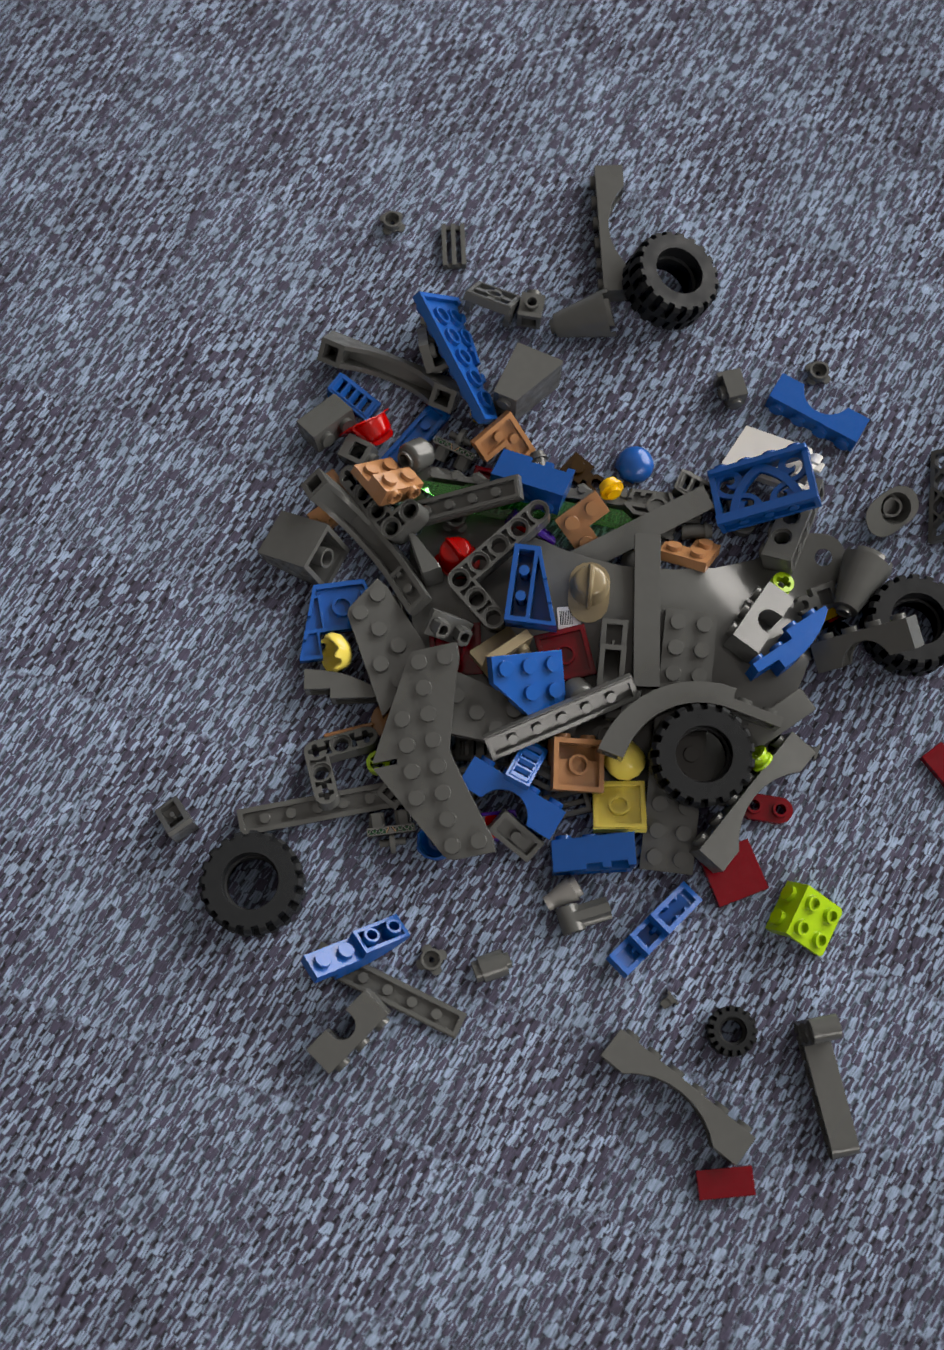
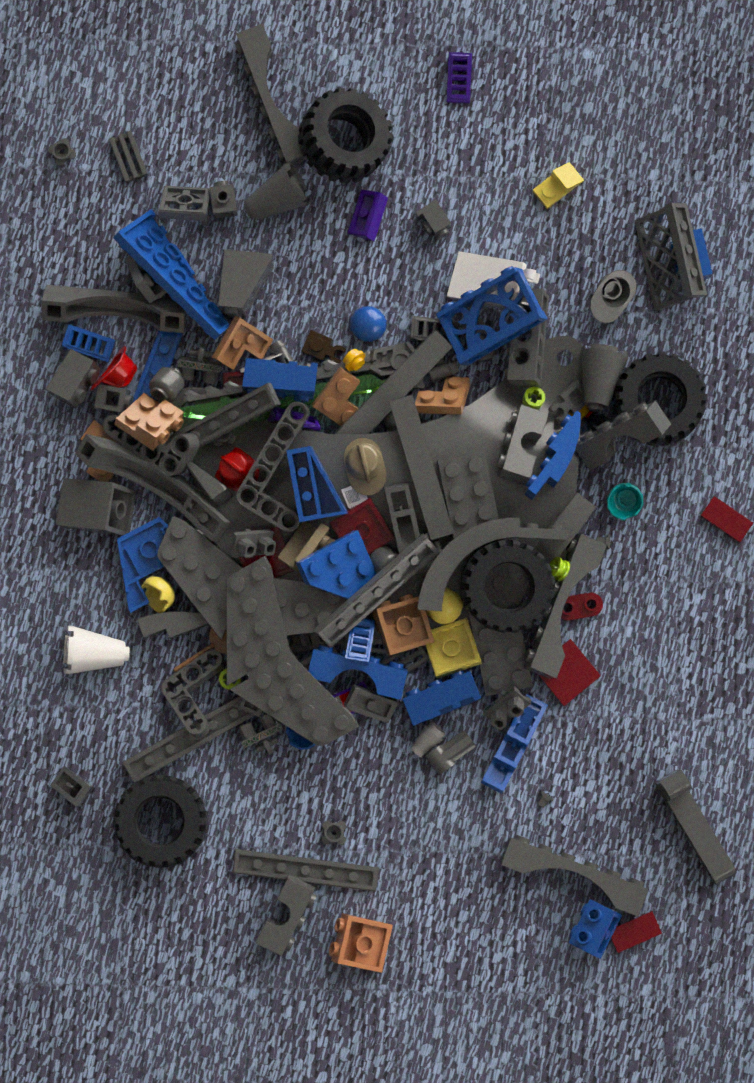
camera: 15 degrees left, 10 degrees up
(247, 687) = (92, 651): none -> white cone
(356, 951) = (268, 847): blue slope -> none
(420, 1089) = (360, 942): none -> nougat plate
(491, 966) = (386, 821): dark grey brick -> none
(658, 886) = (507, 706): none -> dark grey hips
(667, 366) = (367, 215): none -> dark purple slope
(682, 1163) = (594, 928): none -> blue brick
(747, 1026) = (617, 800): black tyre -> none
(799, 256) = (459, 57): none -> dark purple slope
(804, 917) = (638, 691): lime bracket -> none
(820, 367) = (511, 169): dark grey plate -> none
(840, 428) = (490, 214): blue arch -> none
(846, 715) = (624, 501): none -> teal hair
(863, 396) = (557, 185): none -> light yellow slope

